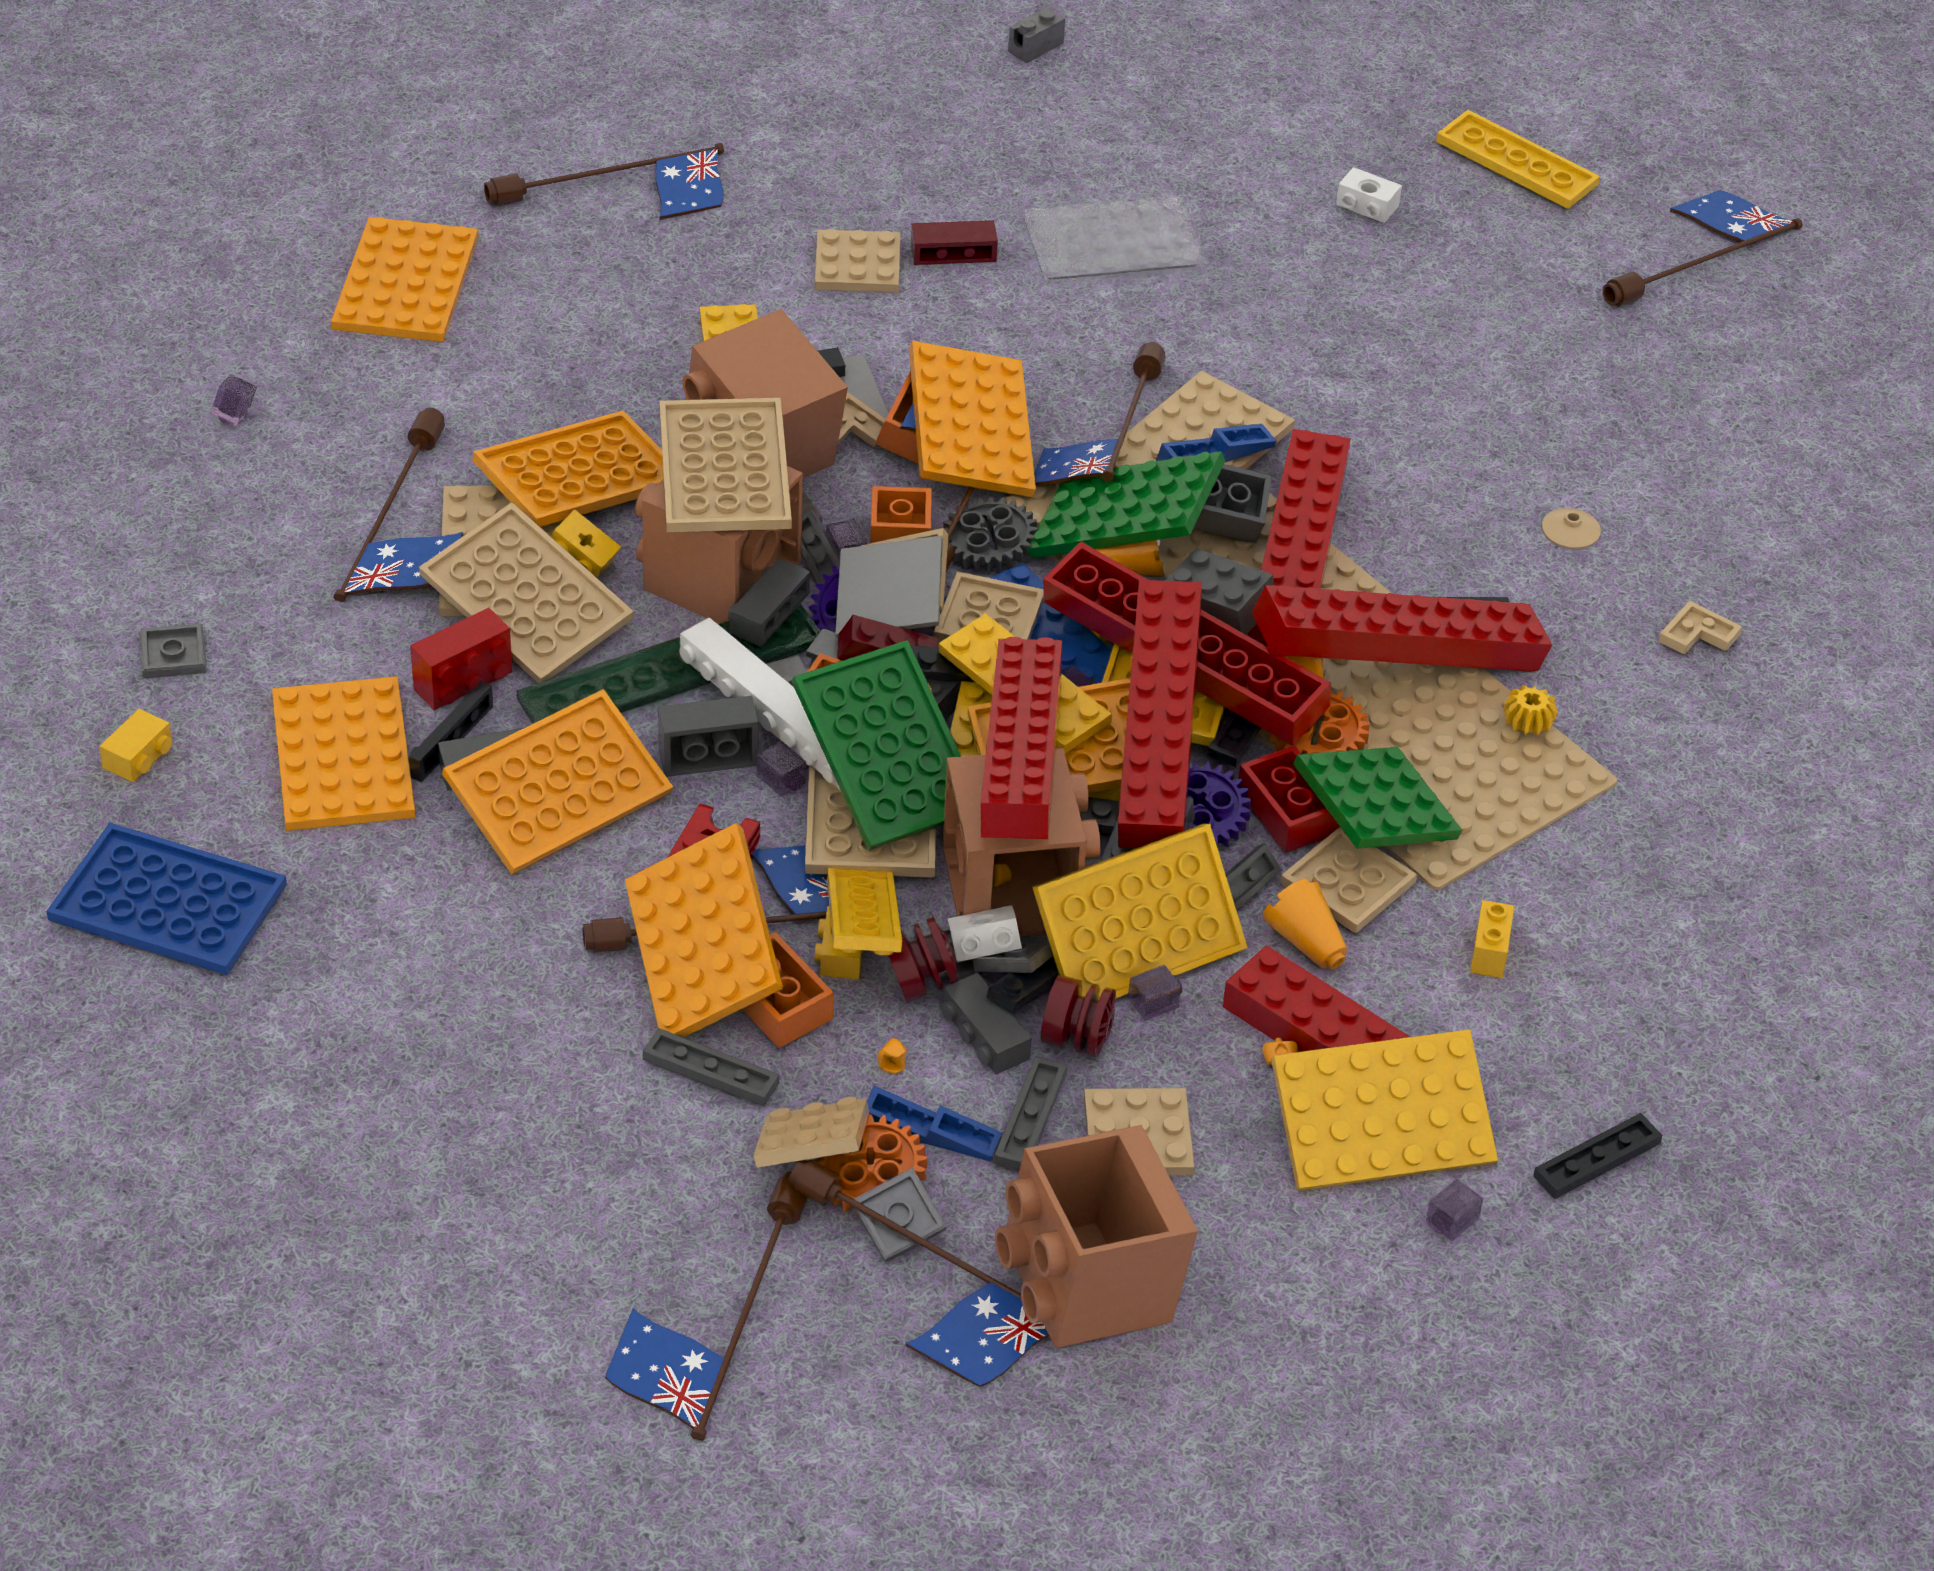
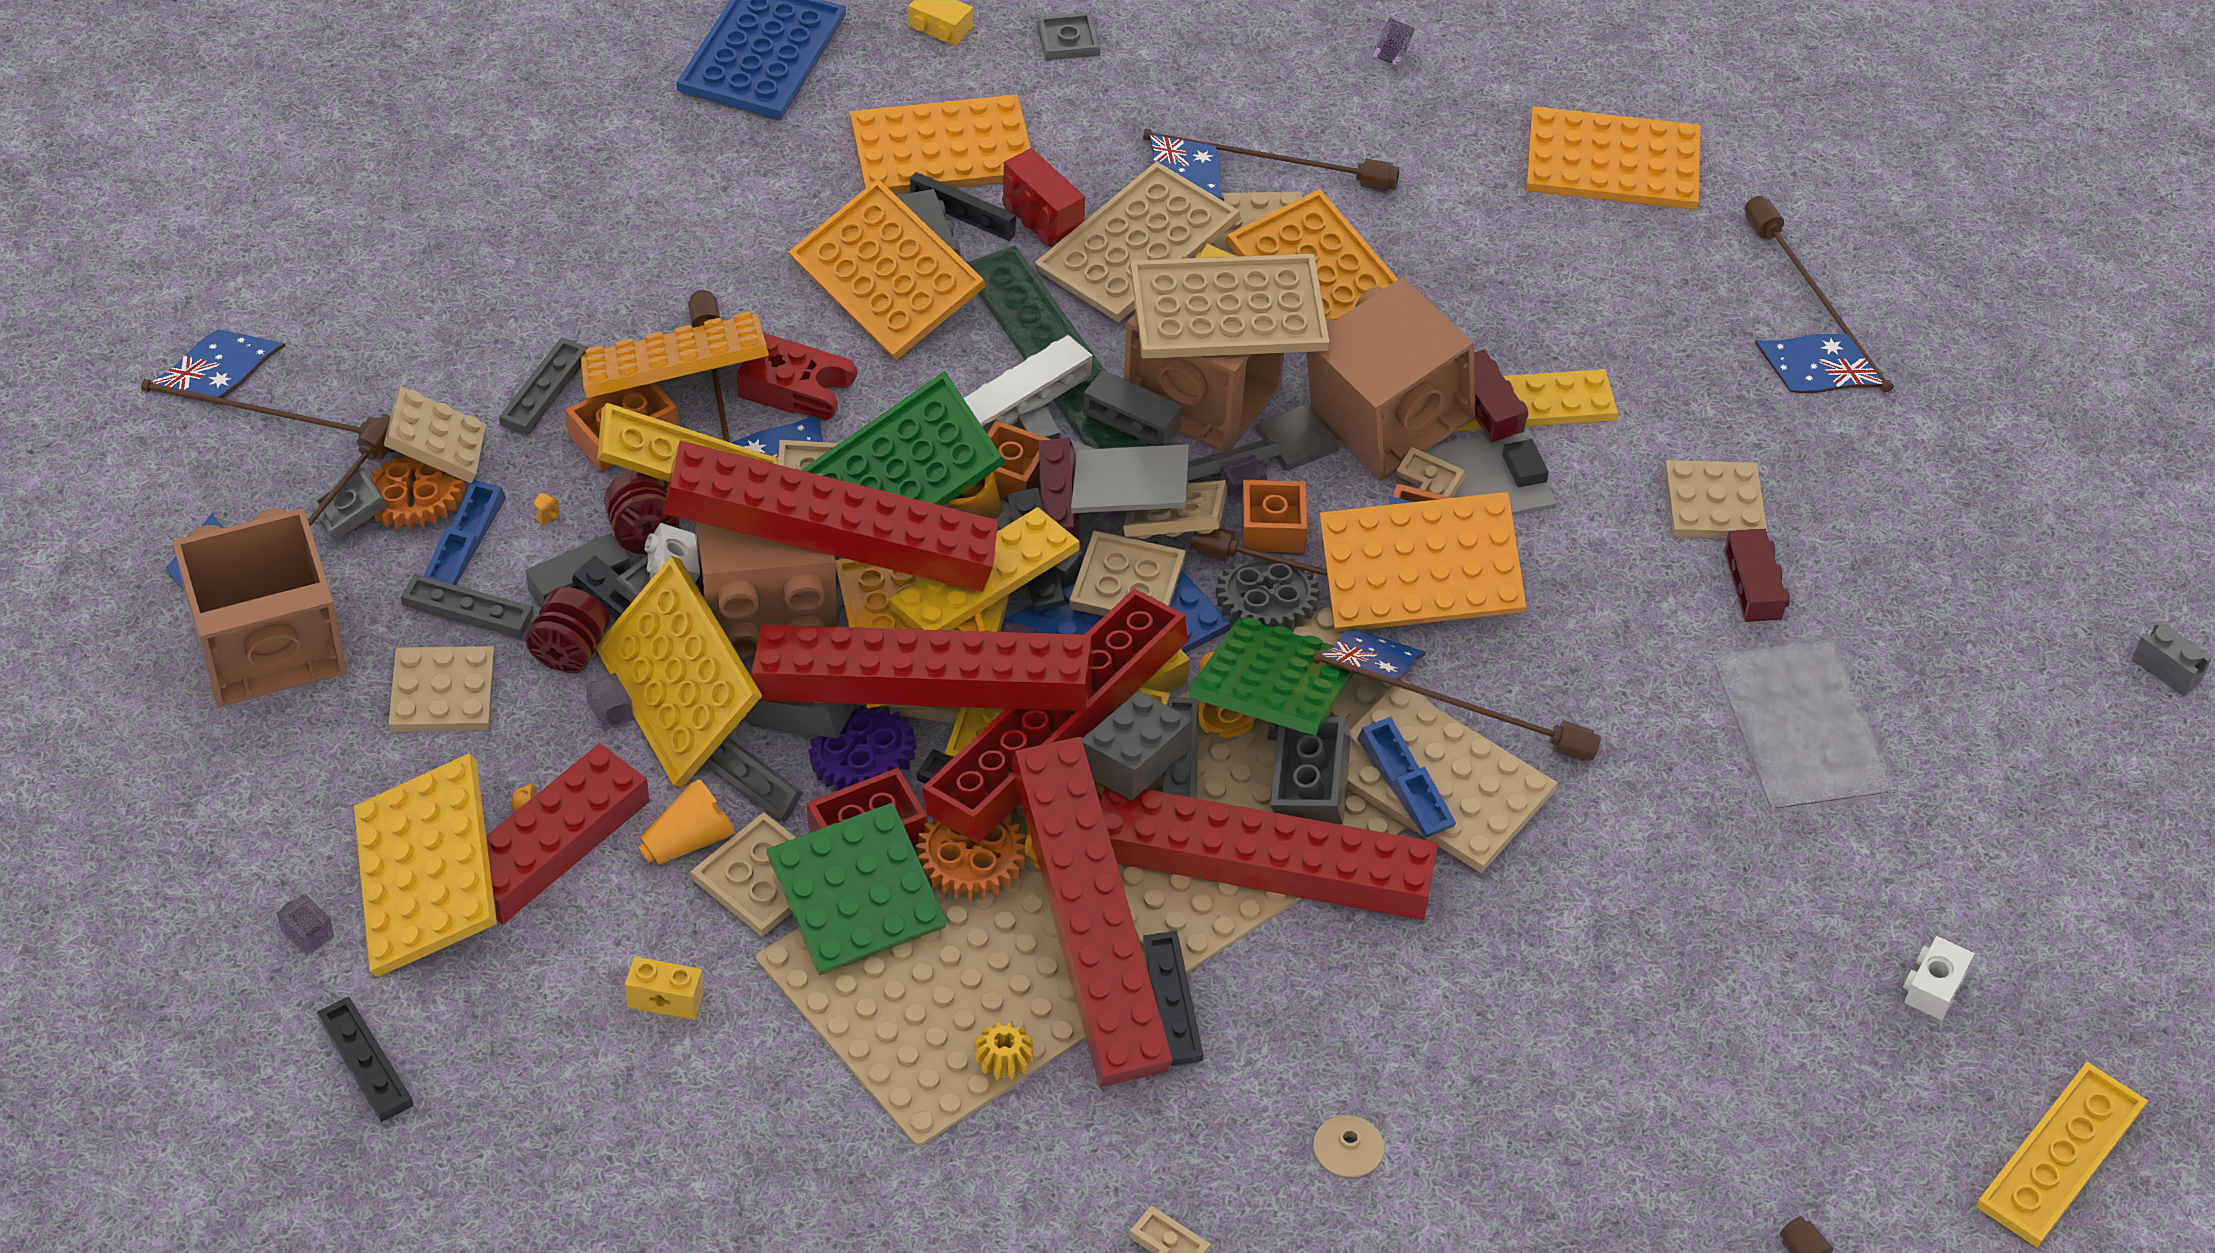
camera: 90 degrees right, 5 degrees up
(708, 736) = (943, 350): dark grey brick -> none

